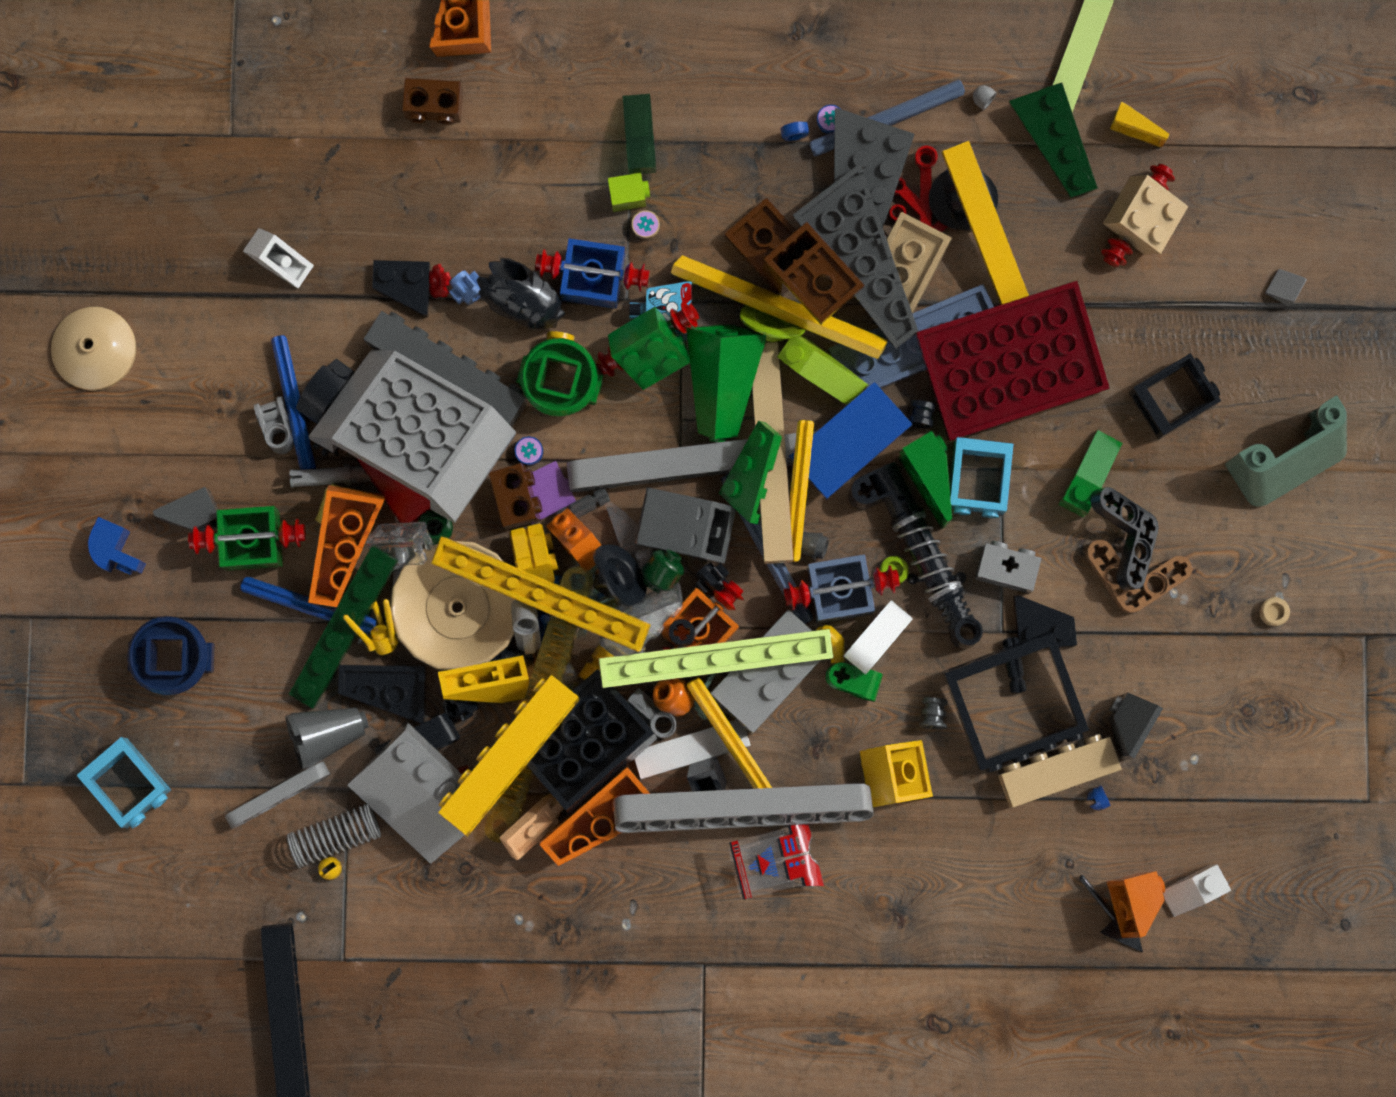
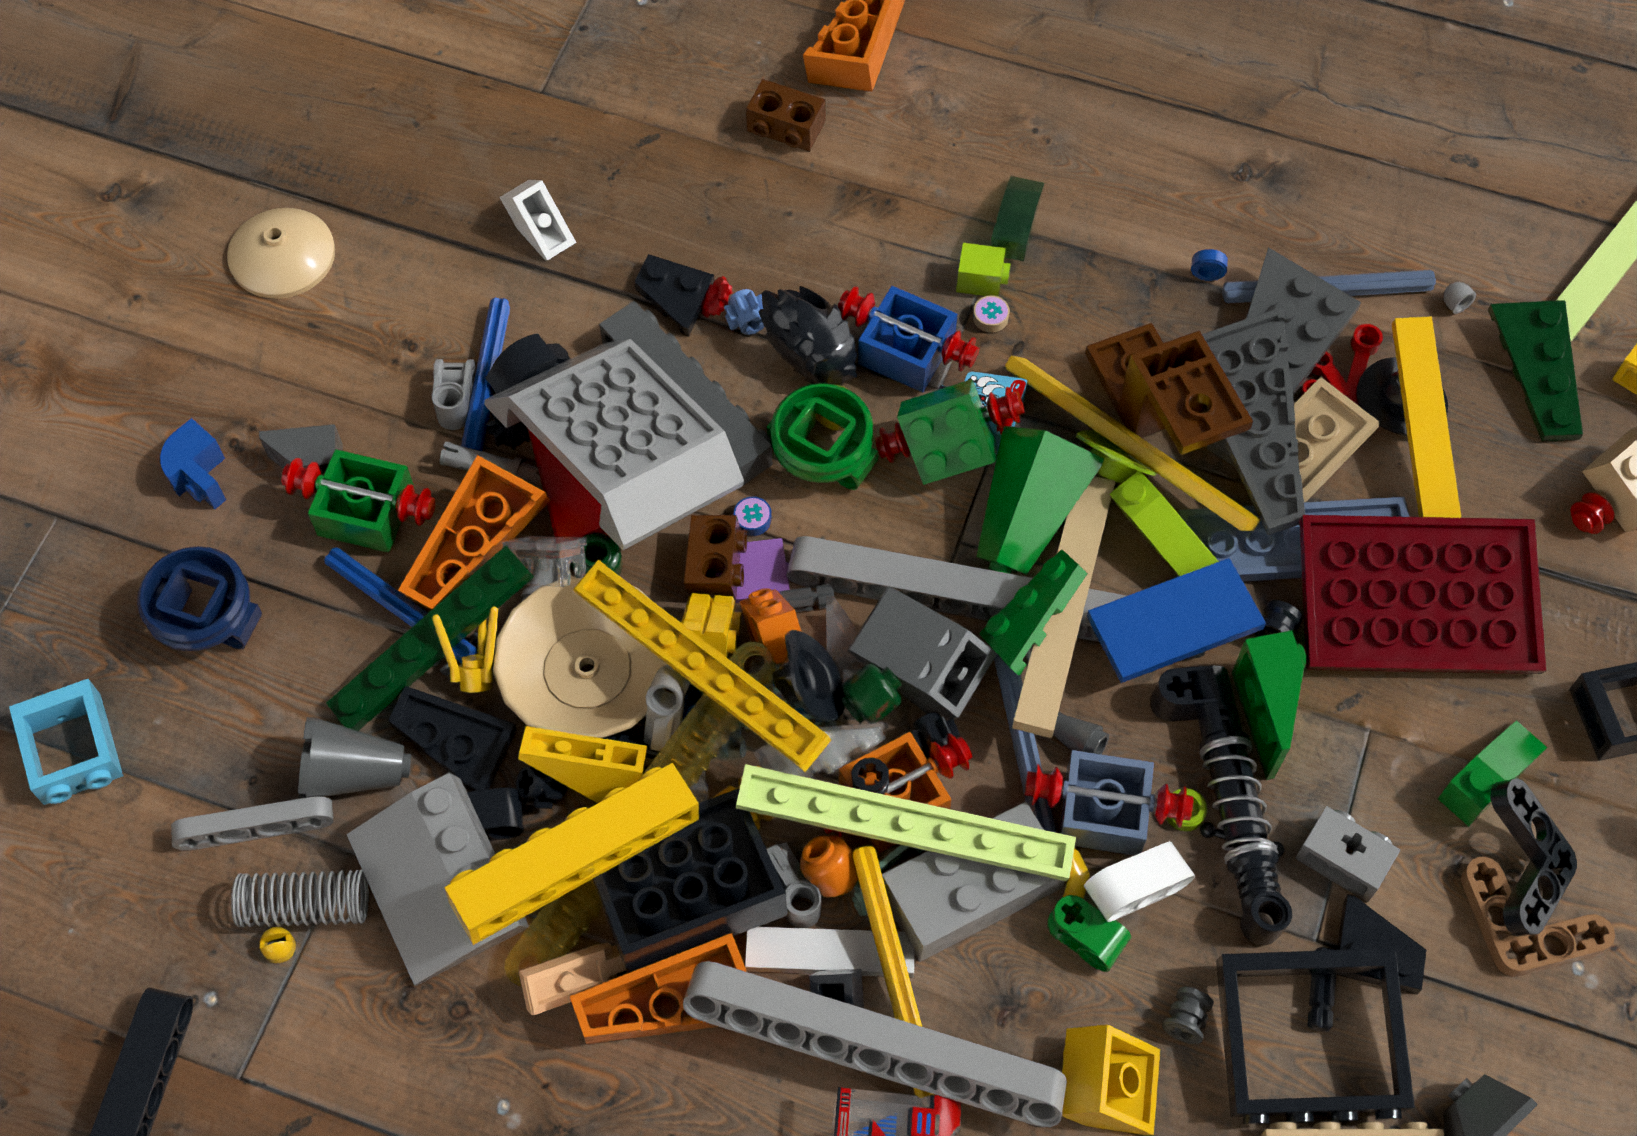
camera: 20 degrees right, 20 degrees down
(800, 483) = (1090, 651): yellow axle -> none
(826, 119) = (1251, 265): tile -> none
(985, 449) = (1356, 694): medium azure window -> none

